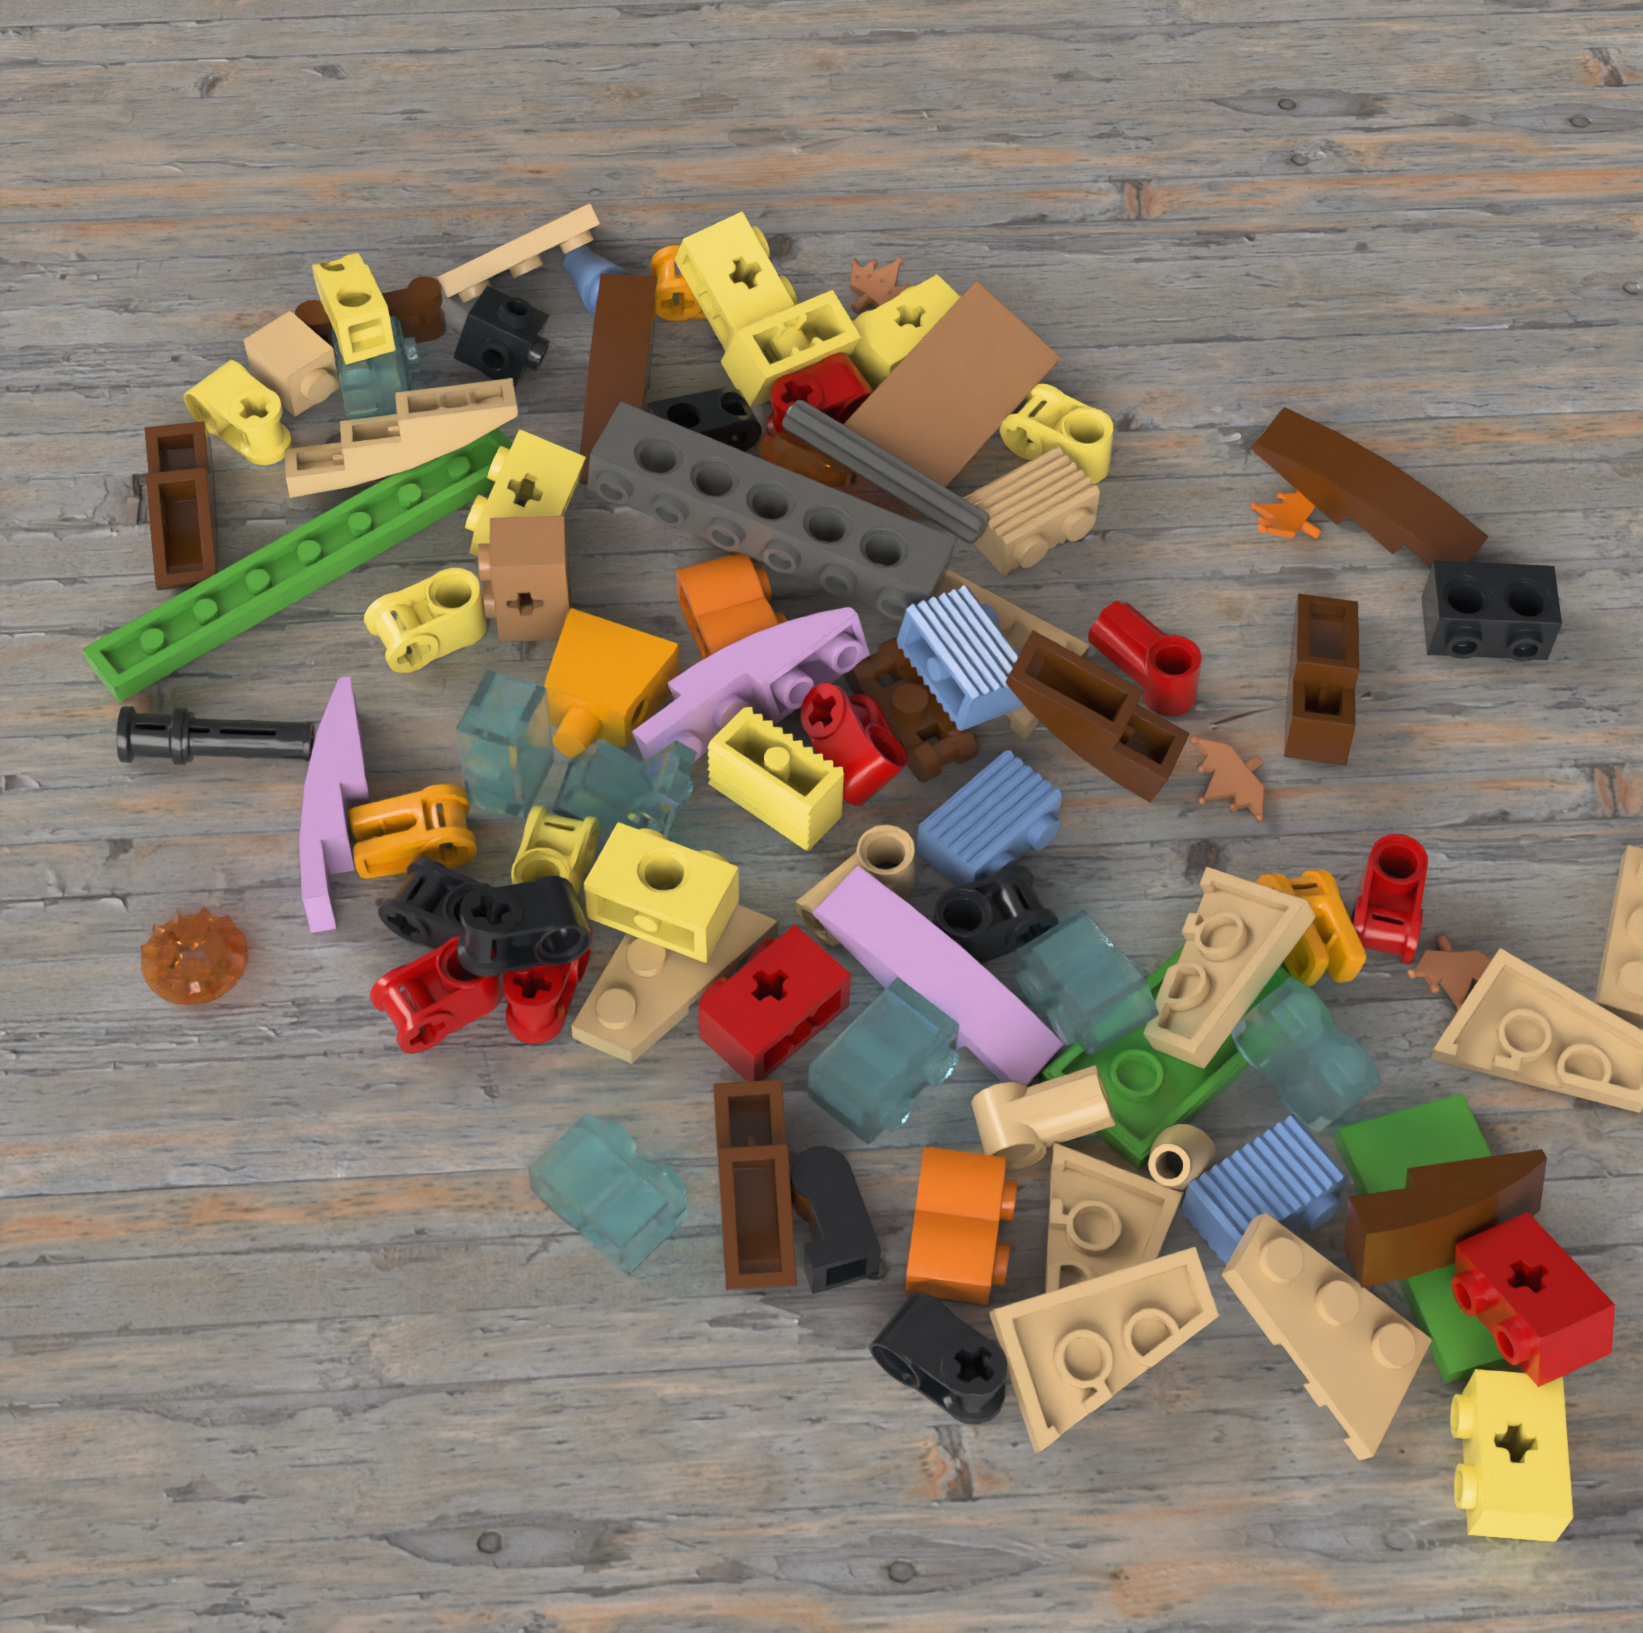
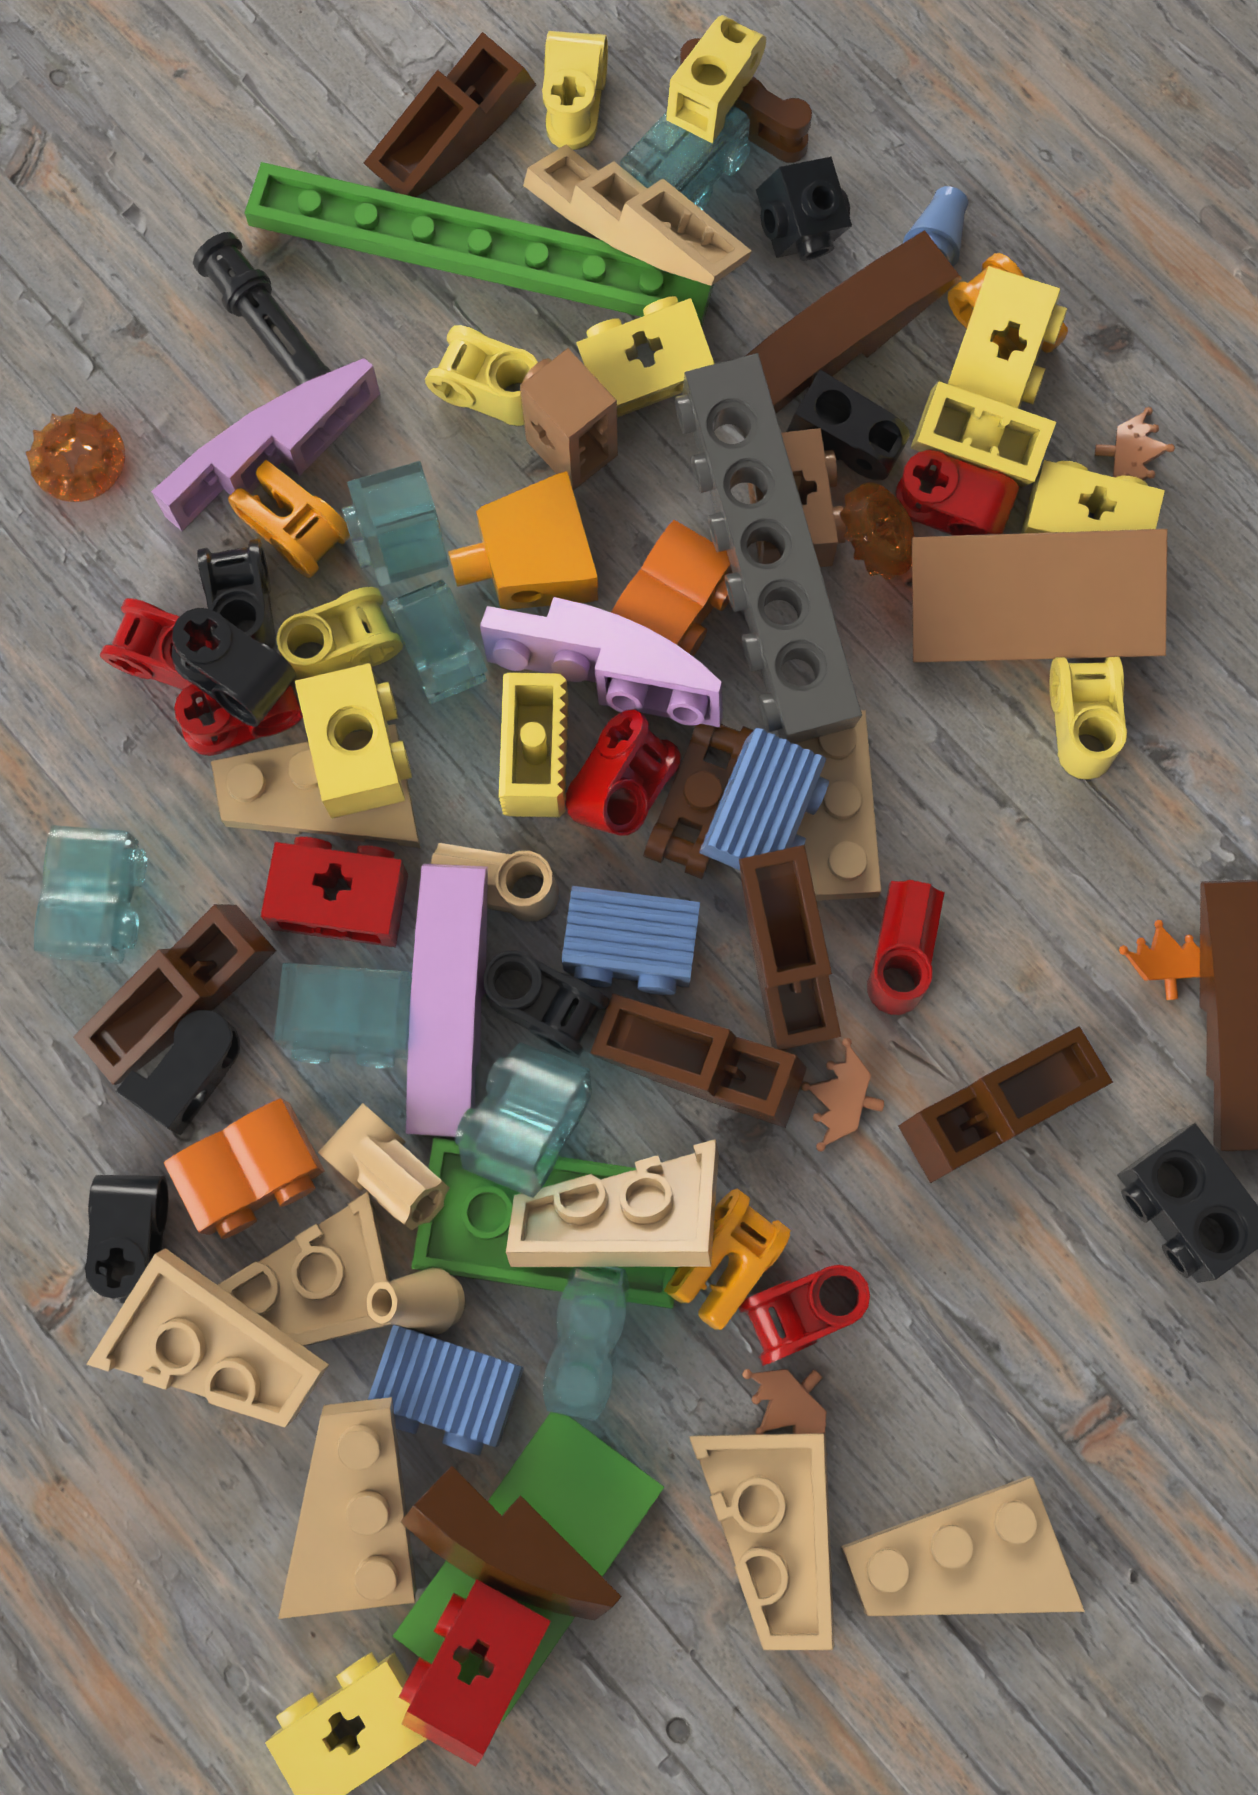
camera: 55 degrees right, 20 degrees up
(292, 363) = (642, 78): tan brick -> none
(520, 254) = (899, 157): tan wing -> none
(885, 471) = (903, 606): dark grey axle -> none
(1035, 510) = (981, 748): tan brick -> none
(1128, 844) = (700, 1059): none -> reddish brown slope

